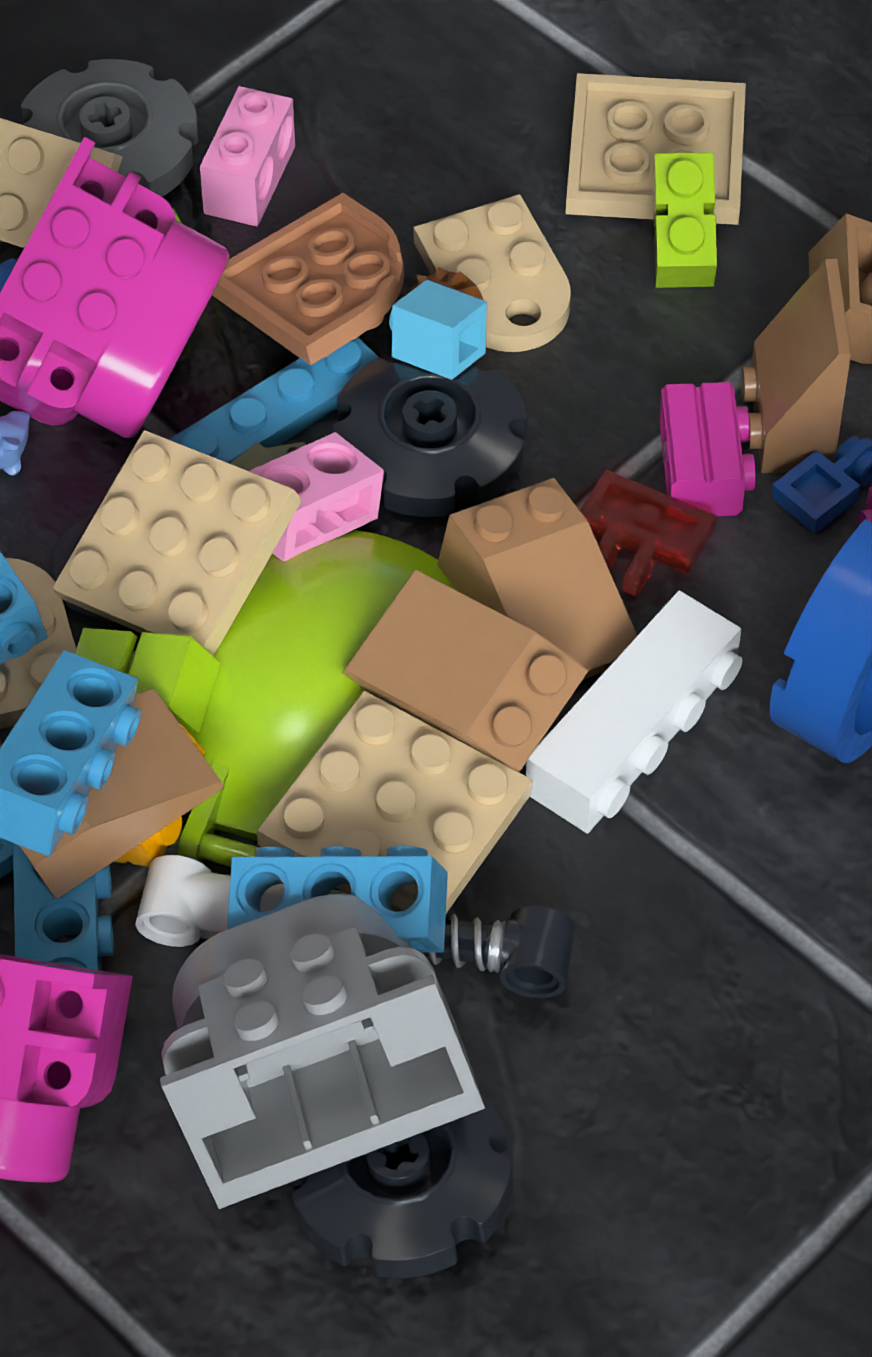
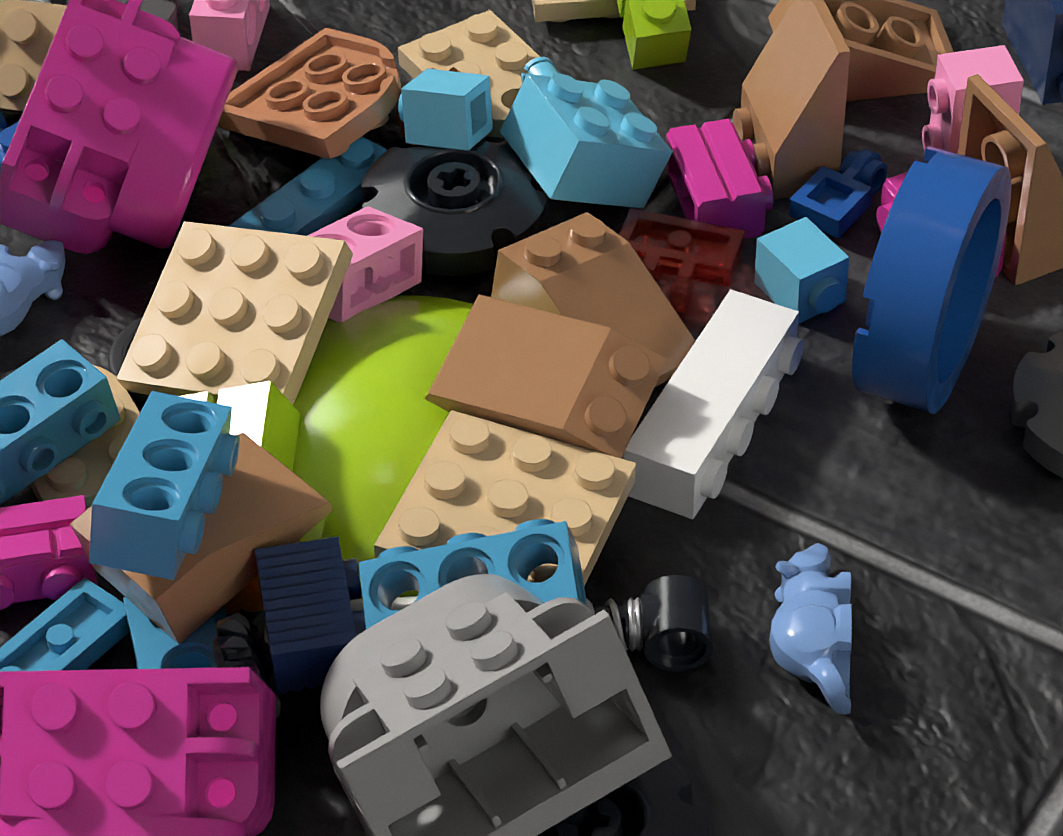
camera: 10 degrees left, 10 degrees down
(114, 933) = (241, 645): none -> black gear
(178, 890) = (307, 609): none -> dark blue brick
(573, 381) = (584, 138): none -> medium azure brick
(668, 977) = (815, 625): none -> medium blue animal
(763, 571) = (801, 269): none -> medium azure brick

